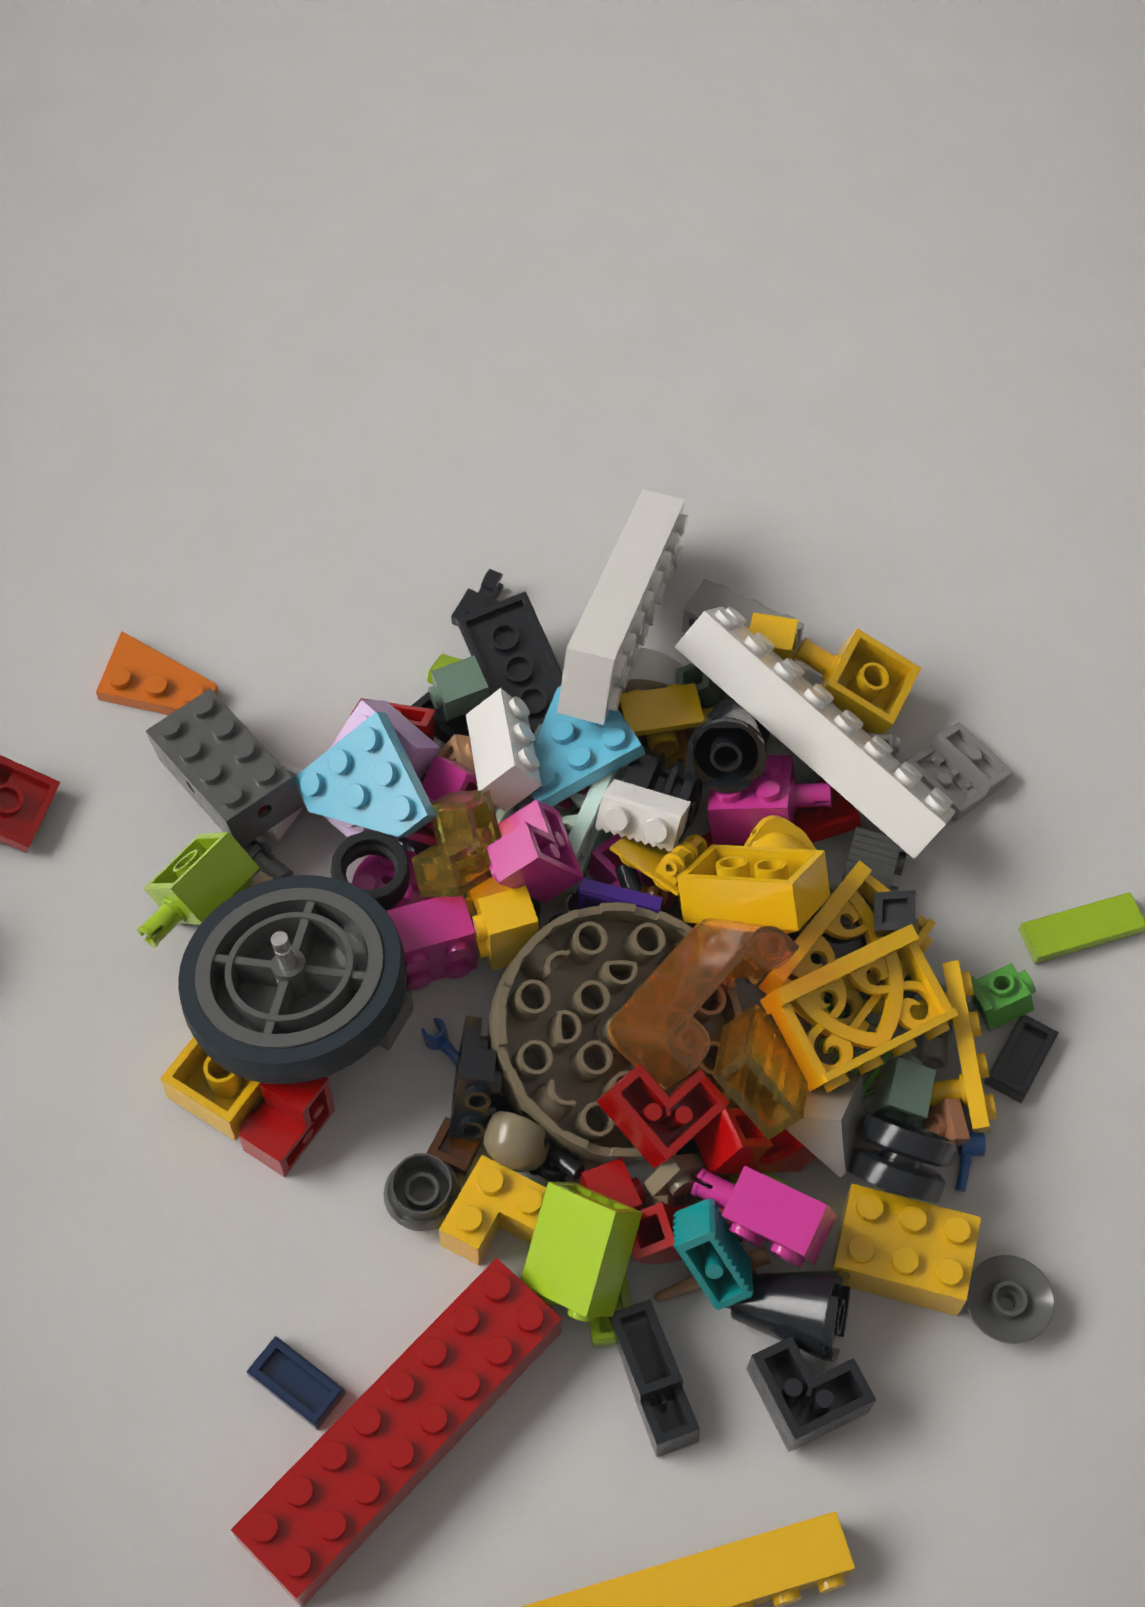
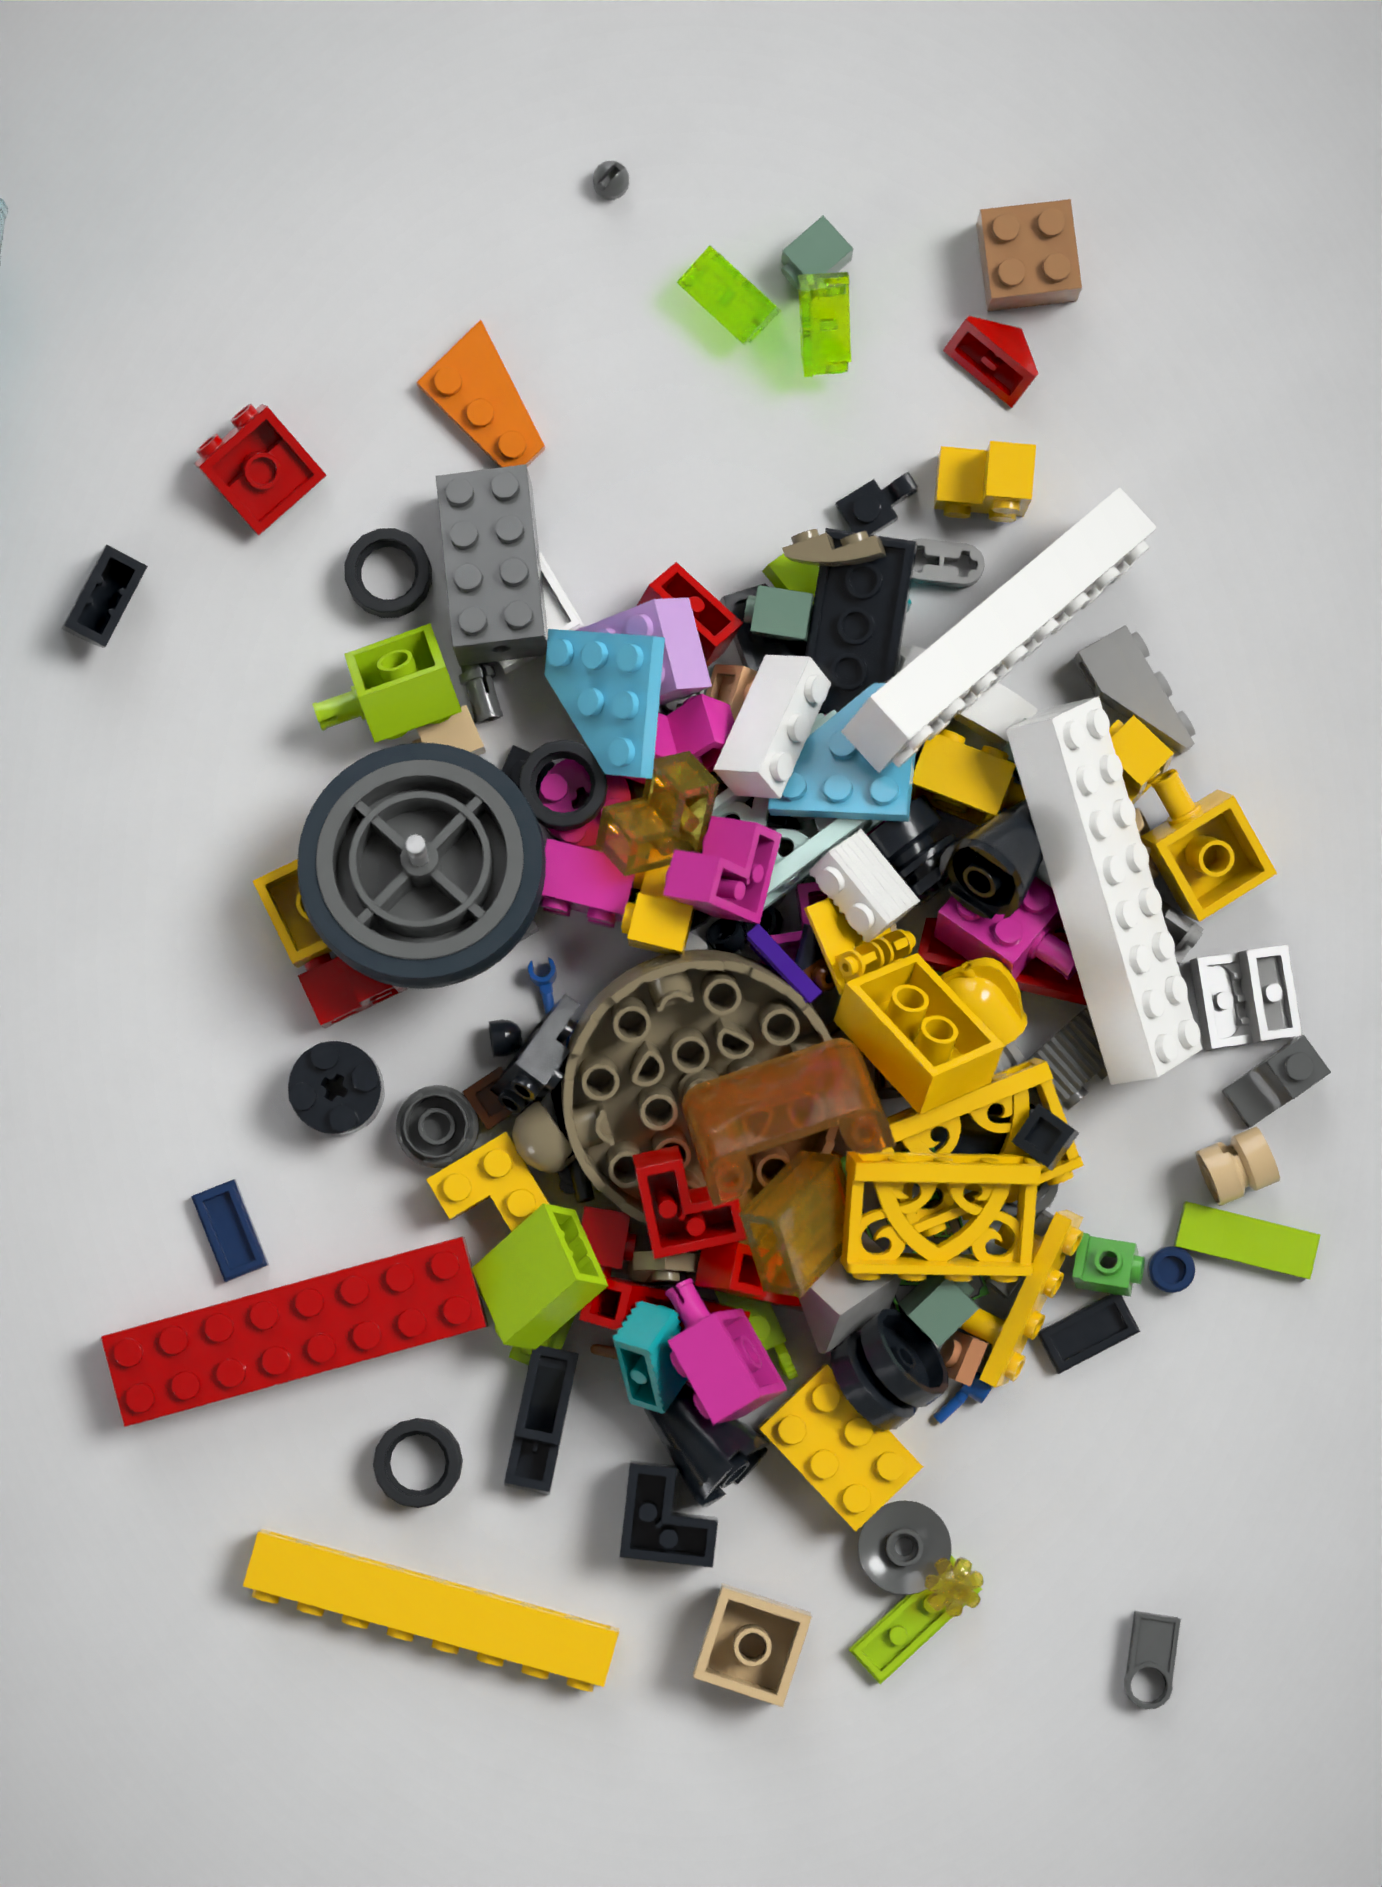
camera: 30 degrees right, 25 degrees up
(143, 797) = (388, 538): none -> black tyre
(172, 510) = (617, 186): none -> dark grey hinge
(294, 528) = (728, 295): none -> clear neon green hinge
(316, 1185) = (328, 1062): none -> black brick
(340, 480) = (816, 252): none -> sand green brick
(369, 510) = (824, 323): none -> clear neon green hinge
(434, 1097) = (504, 1037): none -> black hinge
(463, 627) = (820, 550): none -> dark tan slope
(484, 413) = (1029, 255): none -> medium nougat brick
(501, 484) = (994, 356): none -> red slope
(551, 547) = (985, 481): none -> yellow brick
(552, 619) = (948, 552): none -> light grey beam
(576, 1442) = (383, 1470): none -> black tyre
(949, 1453) = (752, 1645): none -> tan brick
(1021, 806) = (1276, 1081): none -> dark grey arch
(1041, 874) = (1238, 1166): none -> tan wheel
(1048, 978) = (1171, 1269): none -> dark blue tile
(1057, 1361) = (899, 1634): none -> lime tile
(1069, 1303) = (953, 1586): none -> clear yellow plant

